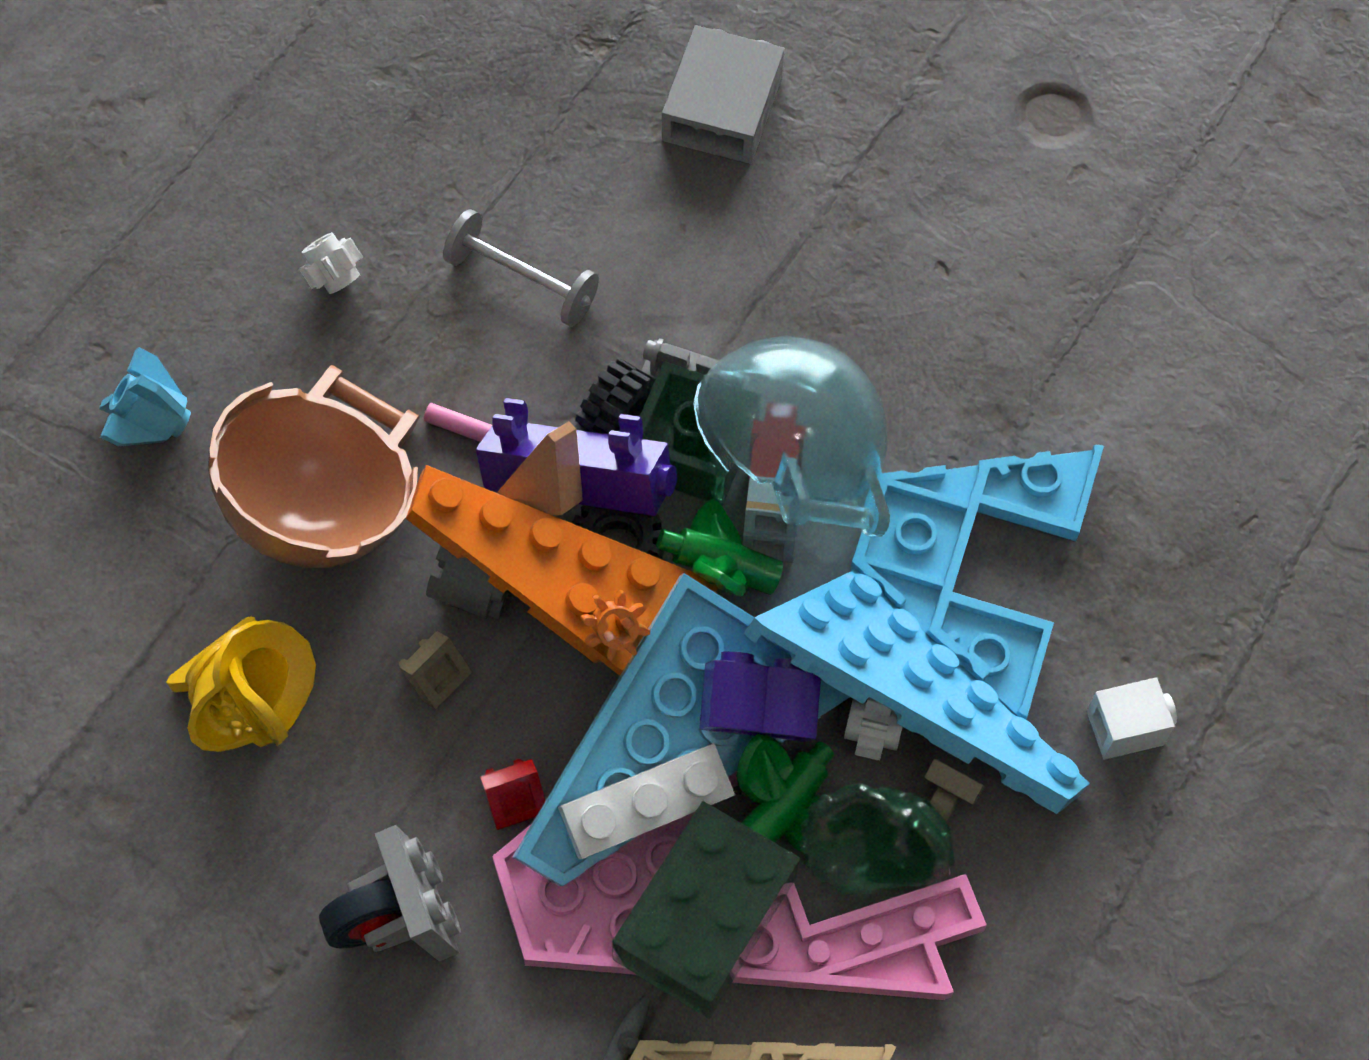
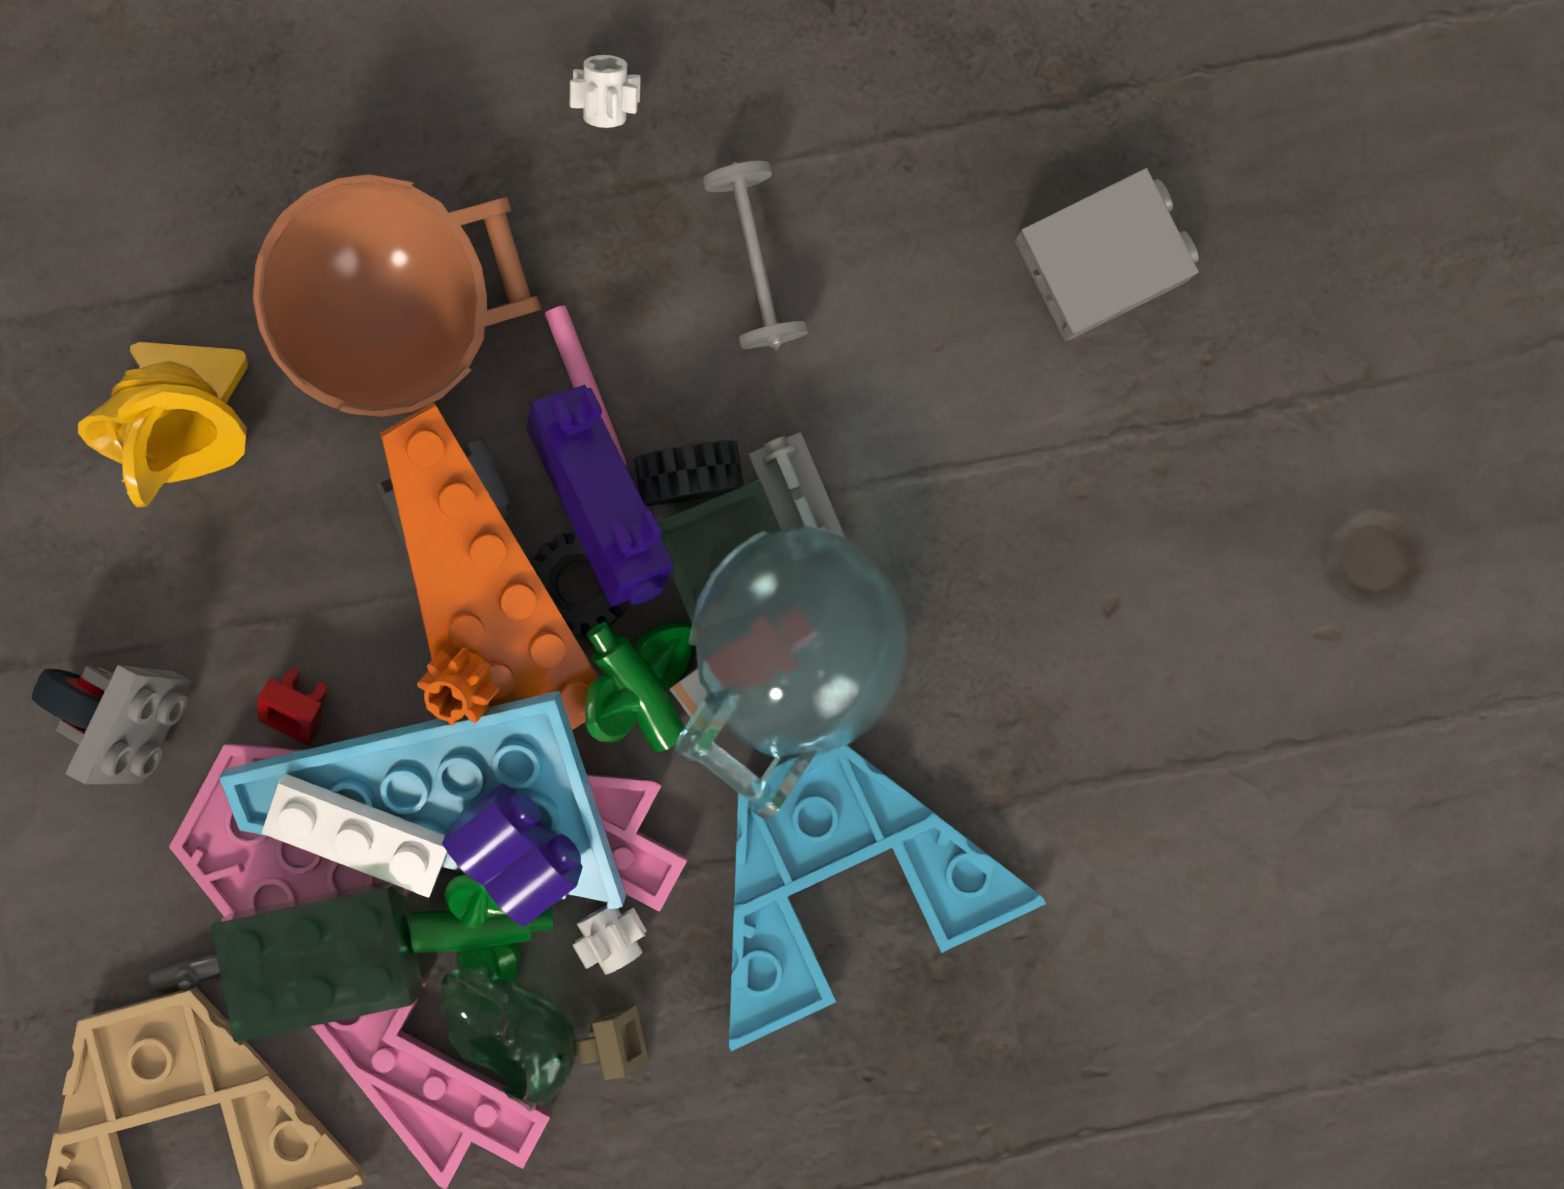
camera: 45 degrees right, 25 degrees up
(146, 406) = (327, 83): medium azure brick -> none
(435, 669) = (331, 548): dark tan tile -> none
(549, 475) = (540, 497): medium nougat slope -> none
(877, 651) = (658, 908): medium azure wing -> none
(1131, 718) = (809, 1134): white brick -> none

